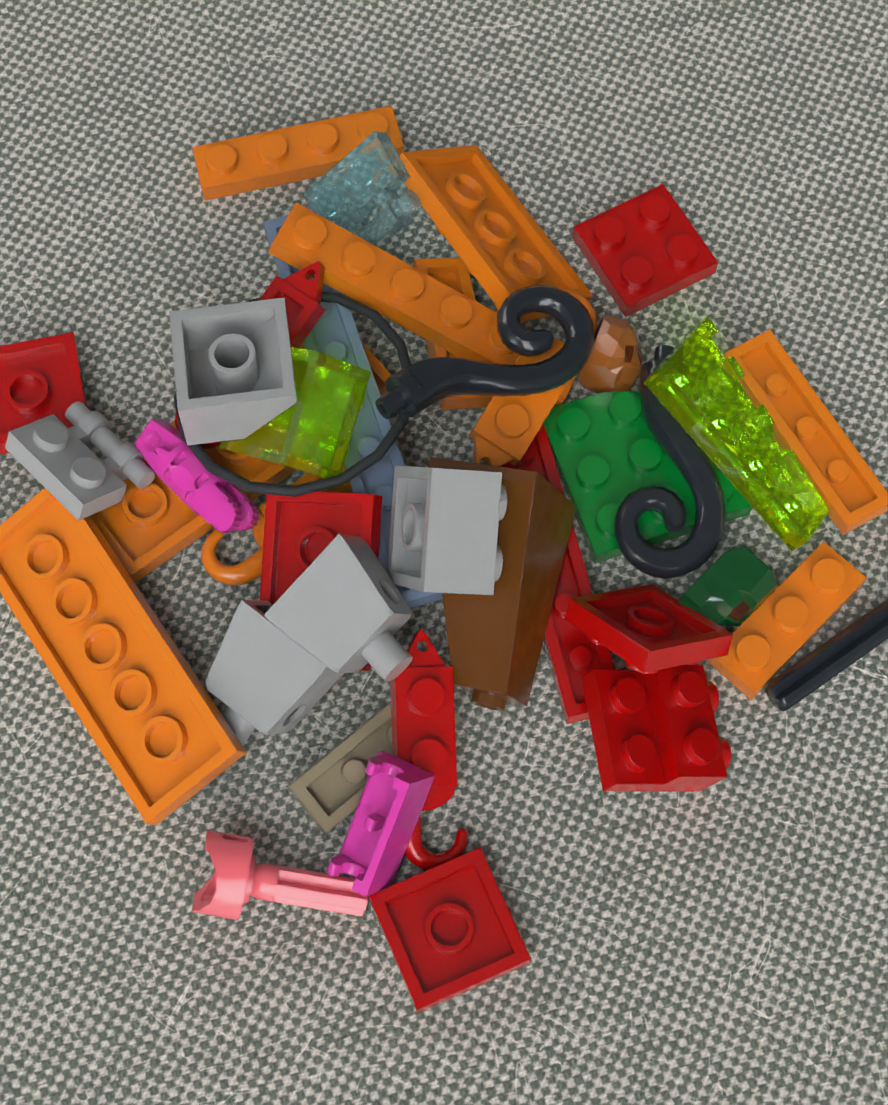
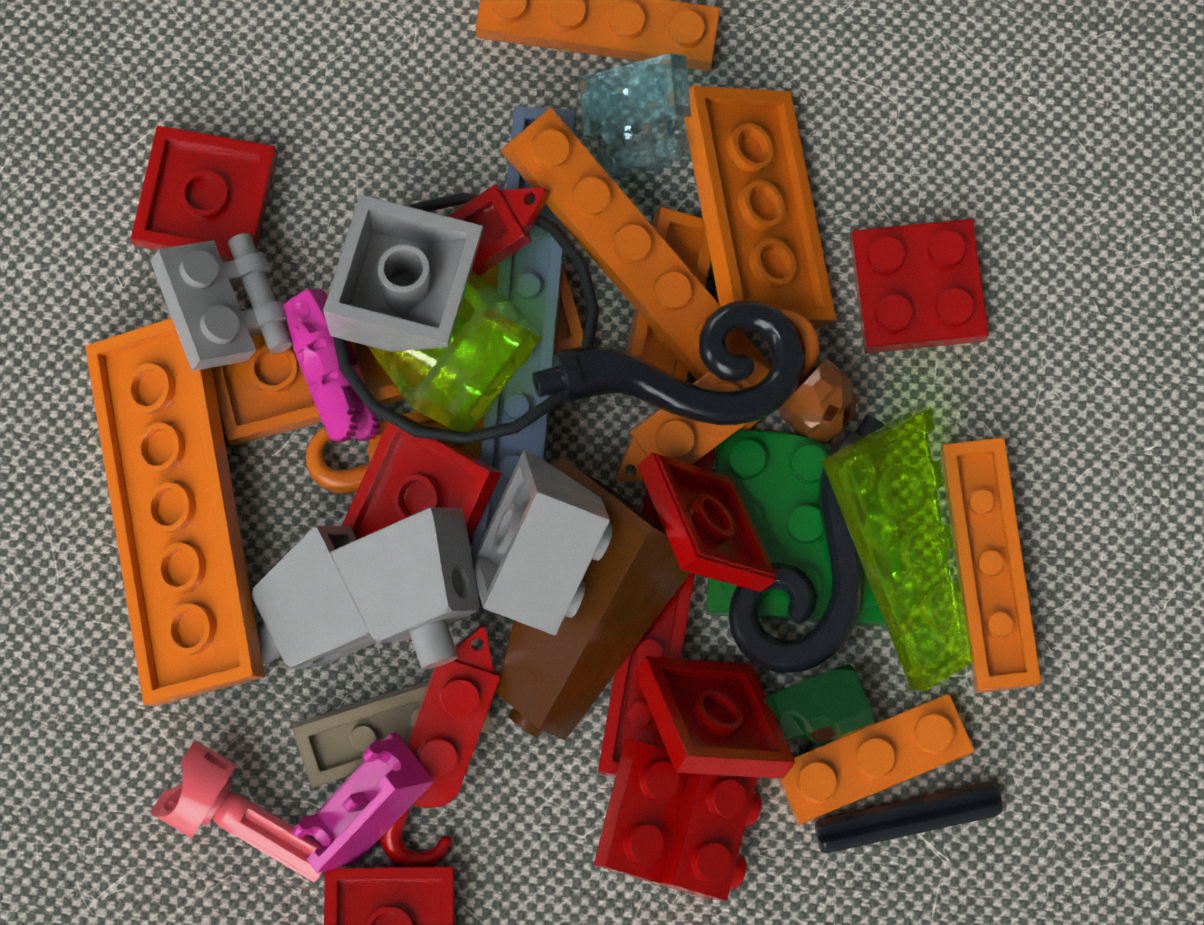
camera: 25 degrees right, 10 degrees up
(571, 469) = (706, 523): none -> red plate

